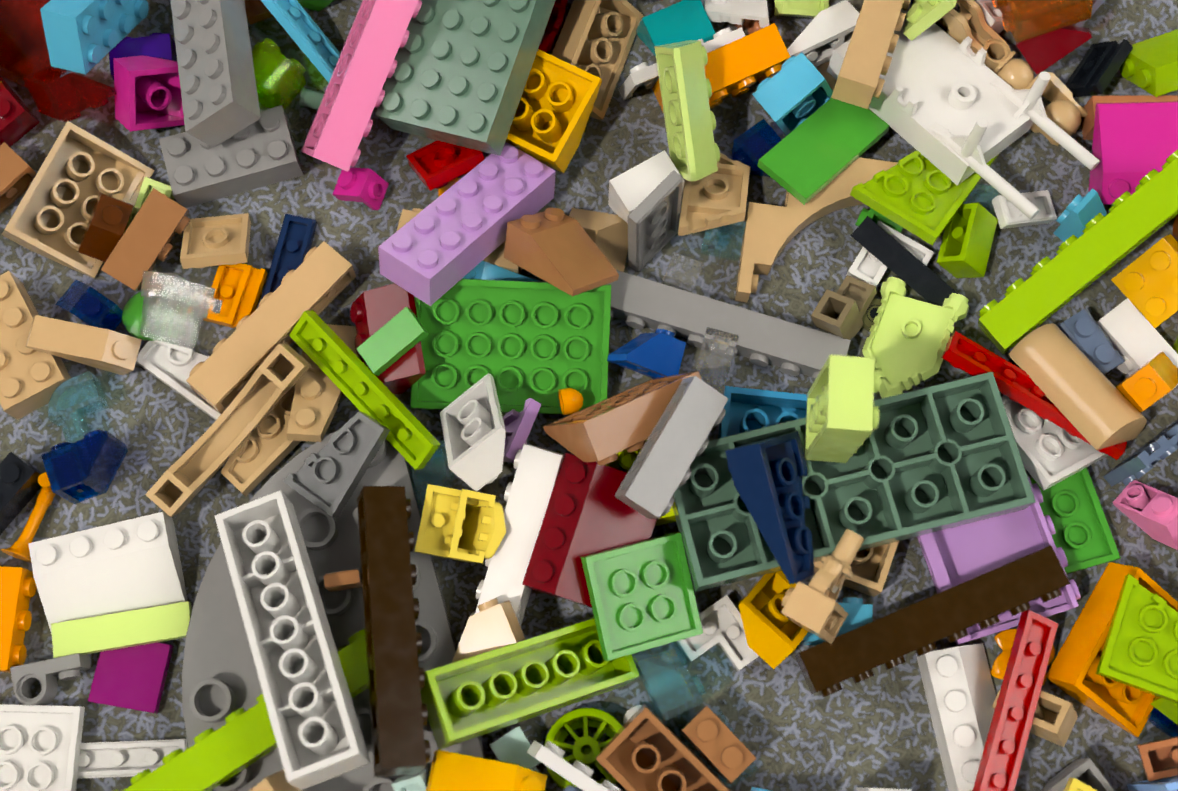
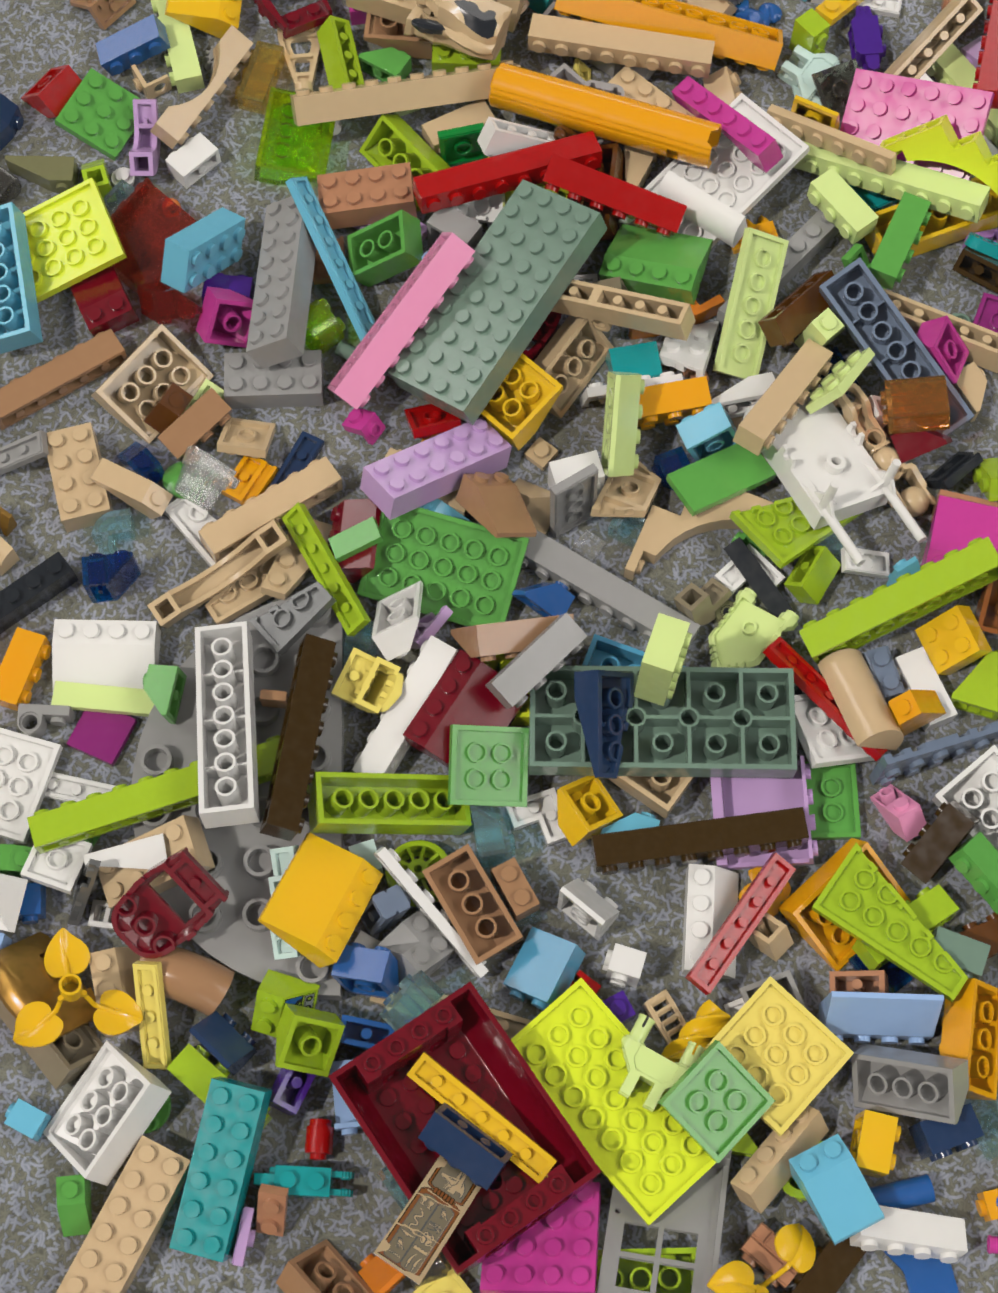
camera: 15 degrees right, 5 degrees down
(20, 548) = (46, 624): light orange piece -> none
(197, 603) = (165, 688): none -> bright green slope
(489, 630) = (372, 758): slope -> none
(570, 400) = (476, 616): light orange hinge -> none
(591, 170) = (541, 453): none -> tan plate
(716, 357) = (594, 613): clear plate -> none
(815, 605) = (612, 798): tan brick -> none
(815, 742) = (587, 907): none -> white slope

